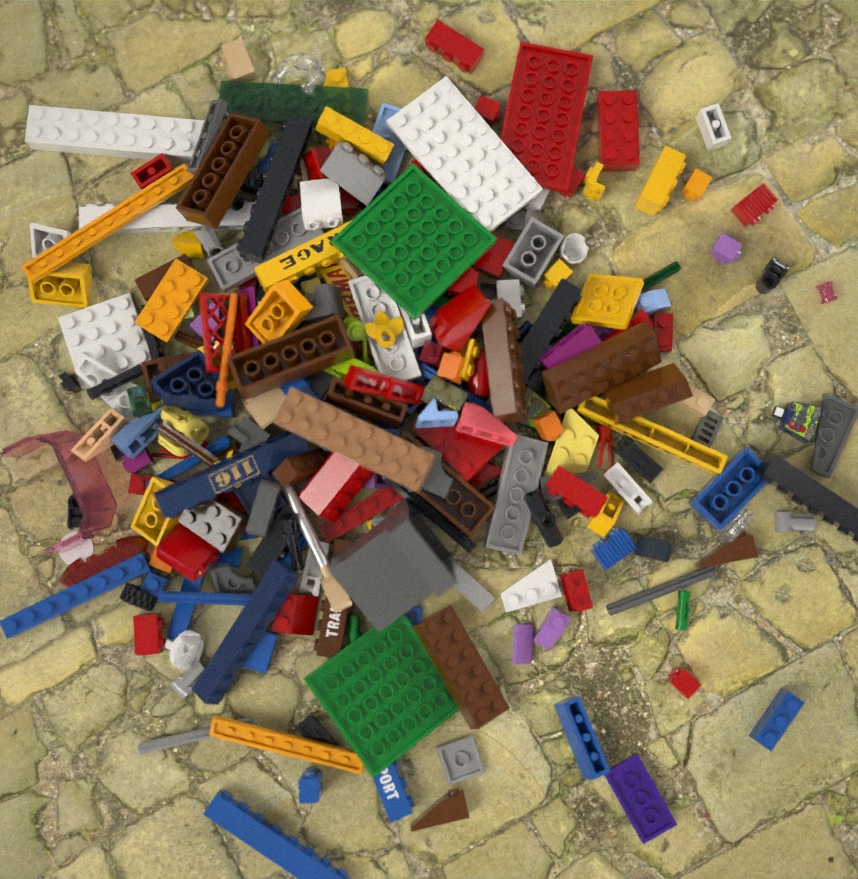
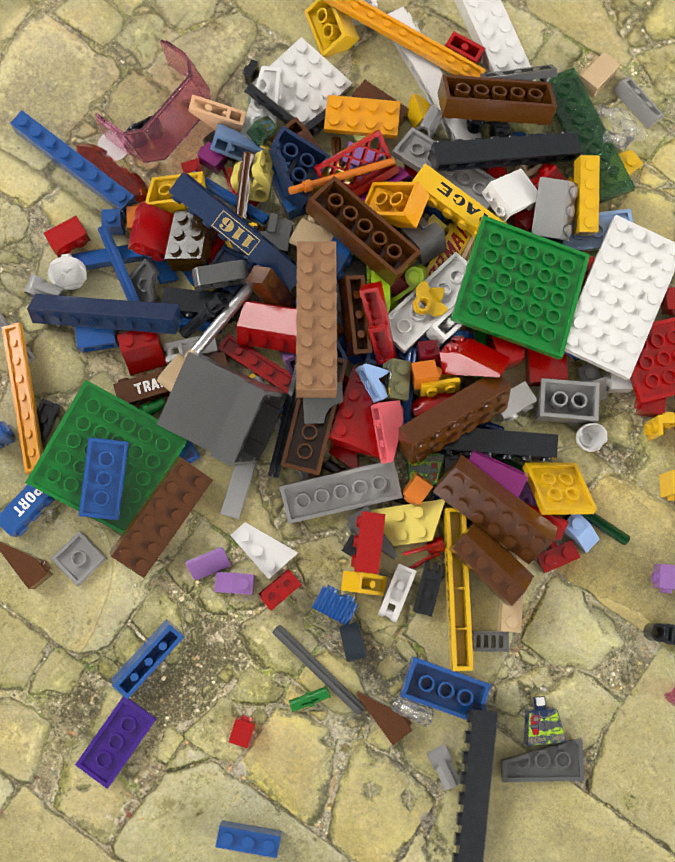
camera: 60 degrees right, 5 degrees down
(138, 598) = (93, 212): black tyre -> none
(283, 40) = (638, 102): none -> light grey slope
(402, 703) = (103, 478): none -> blue tile
(486, 287) = (513, 375): dark brown panel -> none
(548, 527) = (337, 517): black piece -> none
(555, 274) = (564, 433): yellow brick -> none

